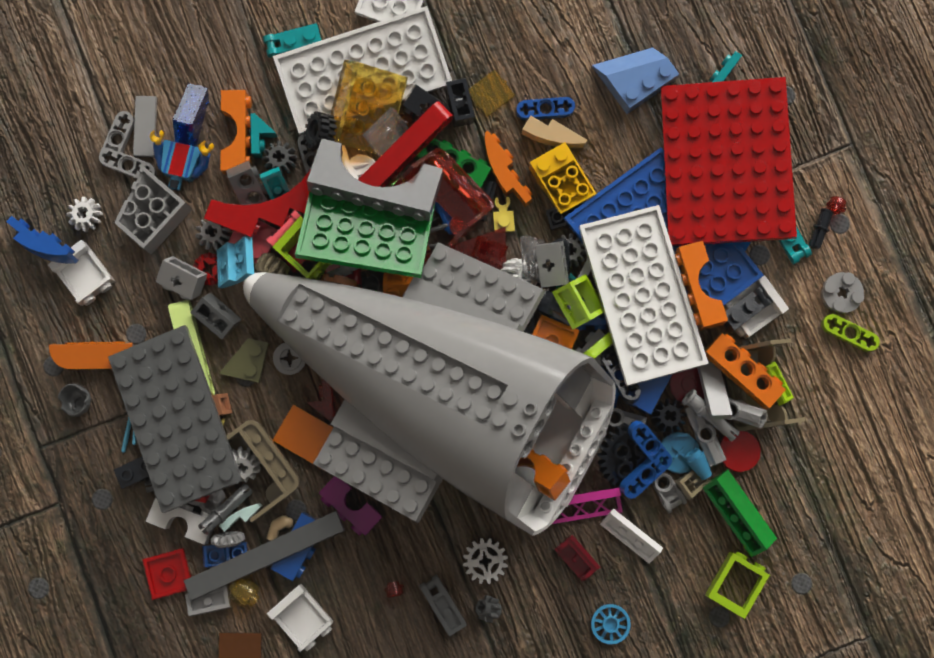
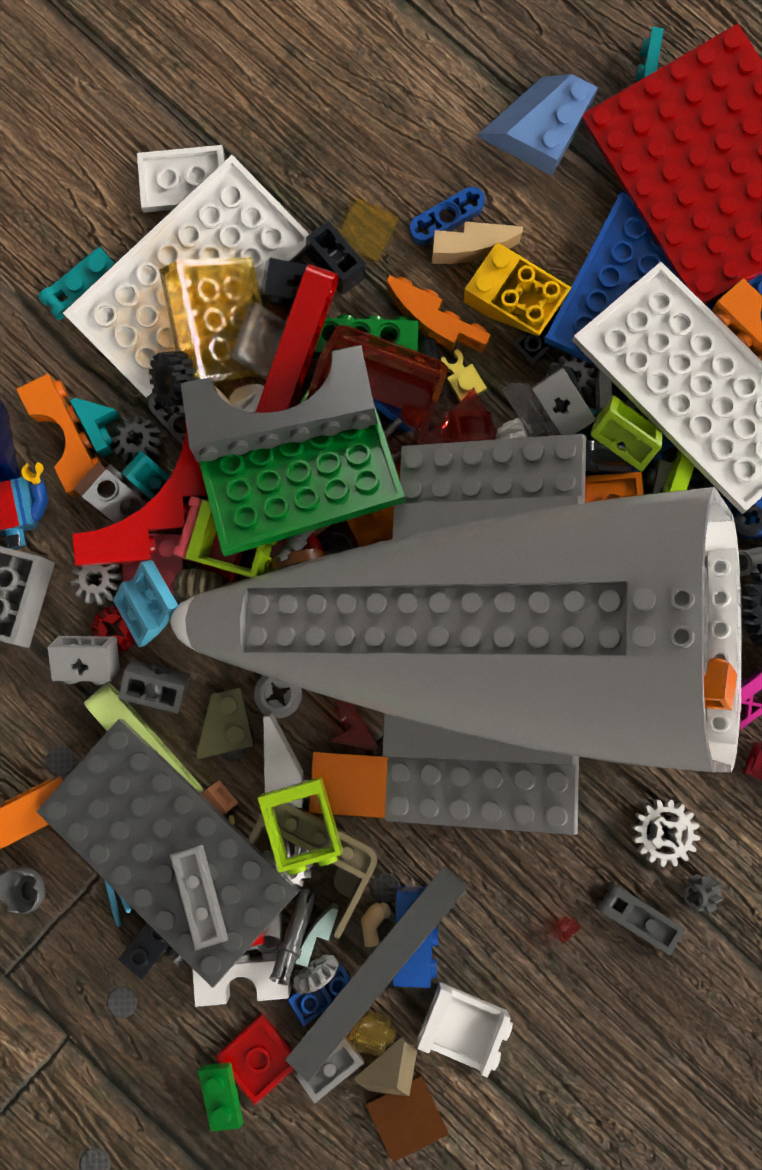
camera: 25 degrees left, 0 degrees up
(134, 584) = (220, 1097): none -> green plate
(180, 454) = (199, 897): none -> light grey tile
(244, 620) = (391, 1071): none -> dark tan slope
(248, 464) = (297, 863): none -> lime window
(269, 406) = (280, 762): none -> white slope
(335, 494) = (479, 857): magenta arch -> none

